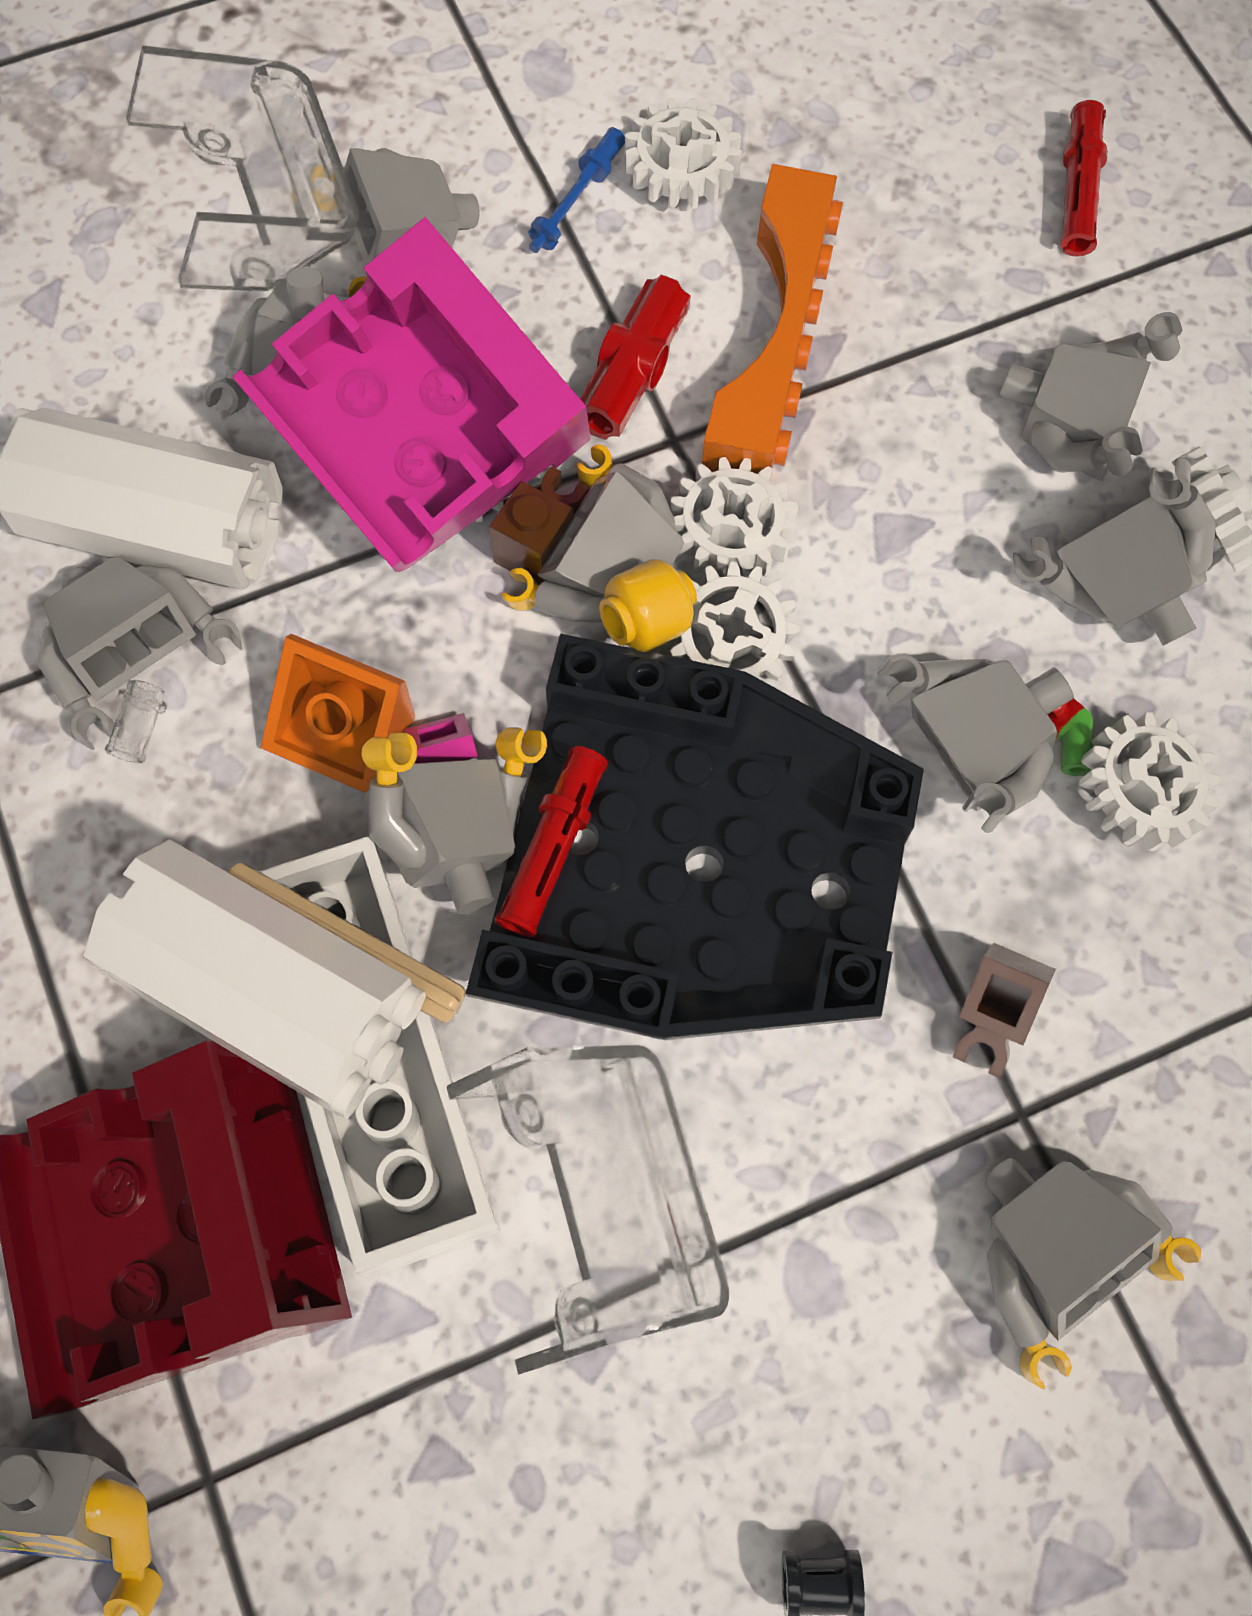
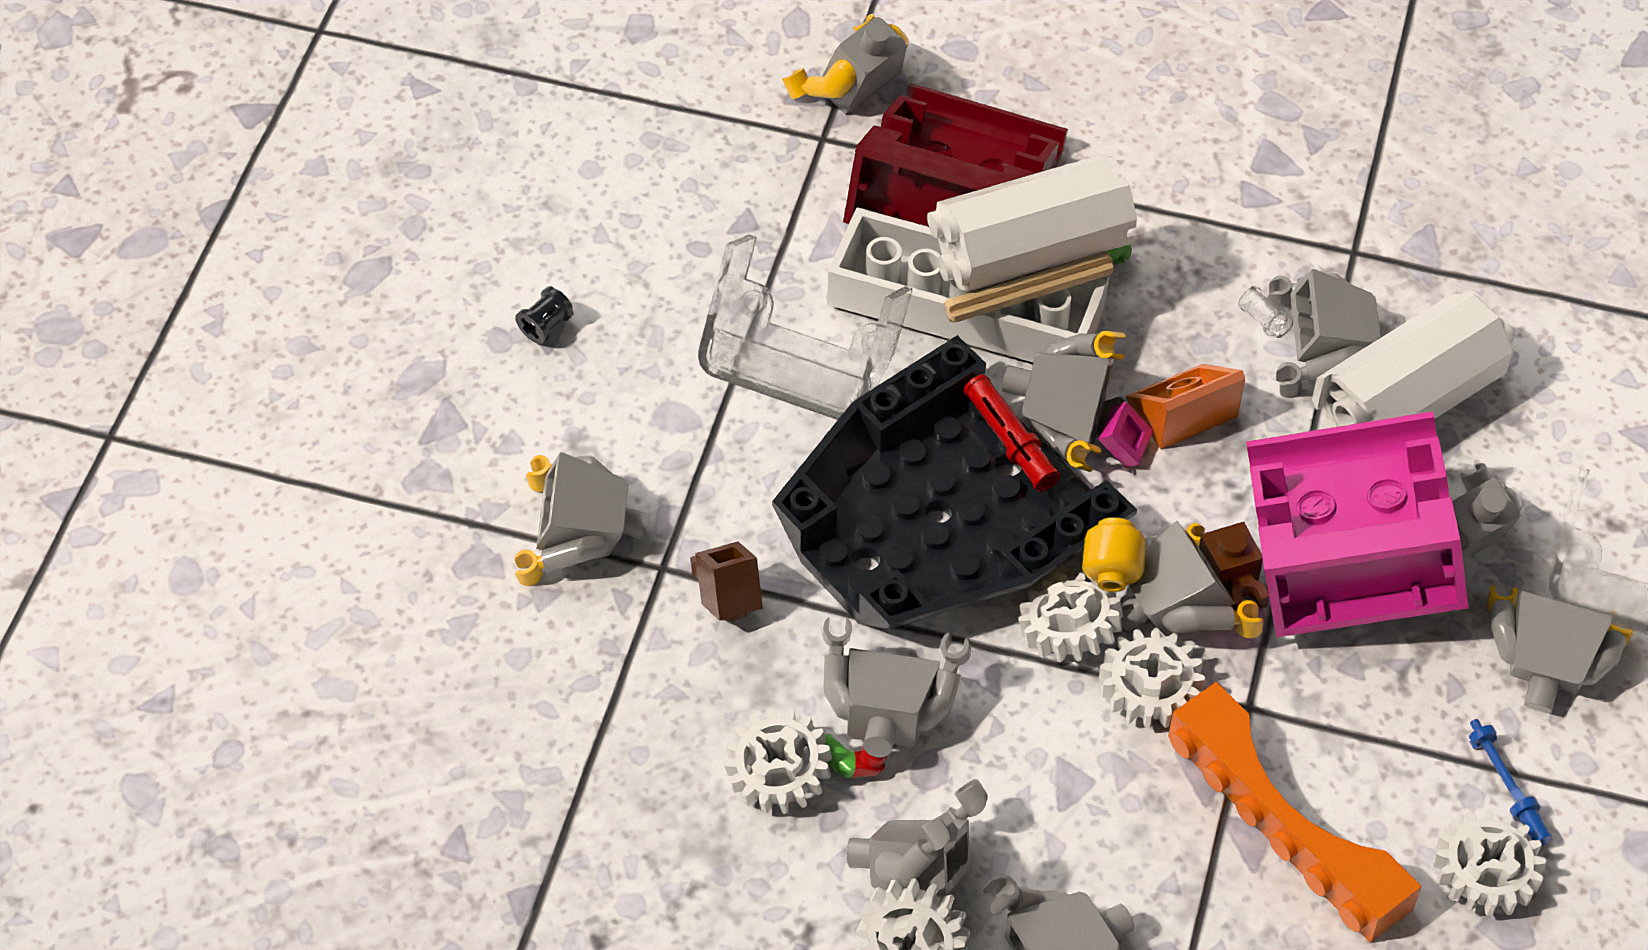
camera: 130 degrees right, 15 degrees down
(634, 355) = (1328, 712): red piece -> none

